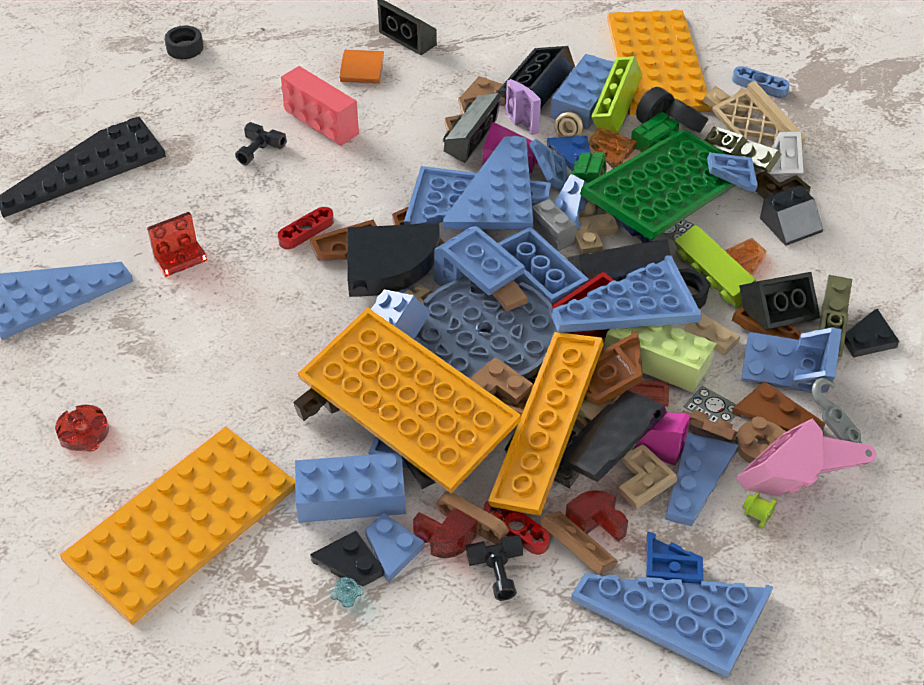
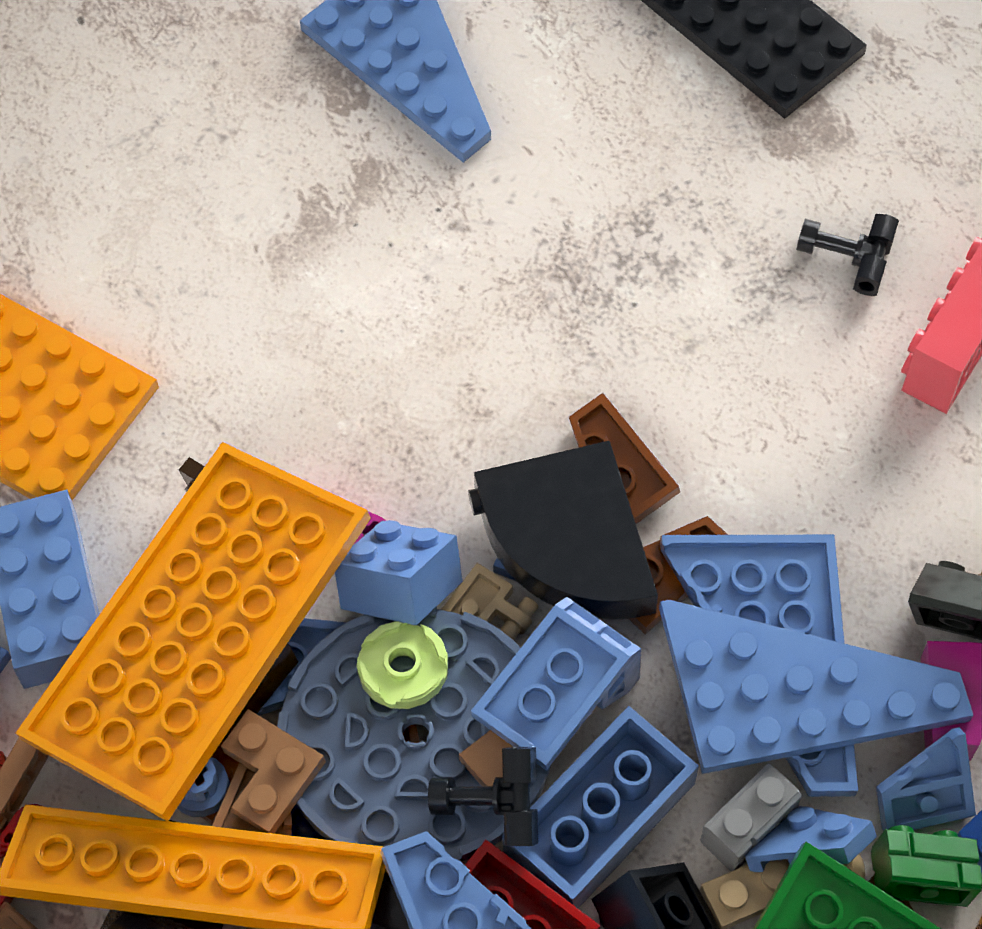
camera: 80 degrees right, 15 degrees up
(85, 439) = (129, 208): clear red plate -> none
(175, 244) = (534, 198): clear red bracket -> none
(293, 235) = (651, 400): red beam -> none
(451, 335) = (406, 688): none -> yellowish green tile
(537, 285) = (508, 796): none -> black bar

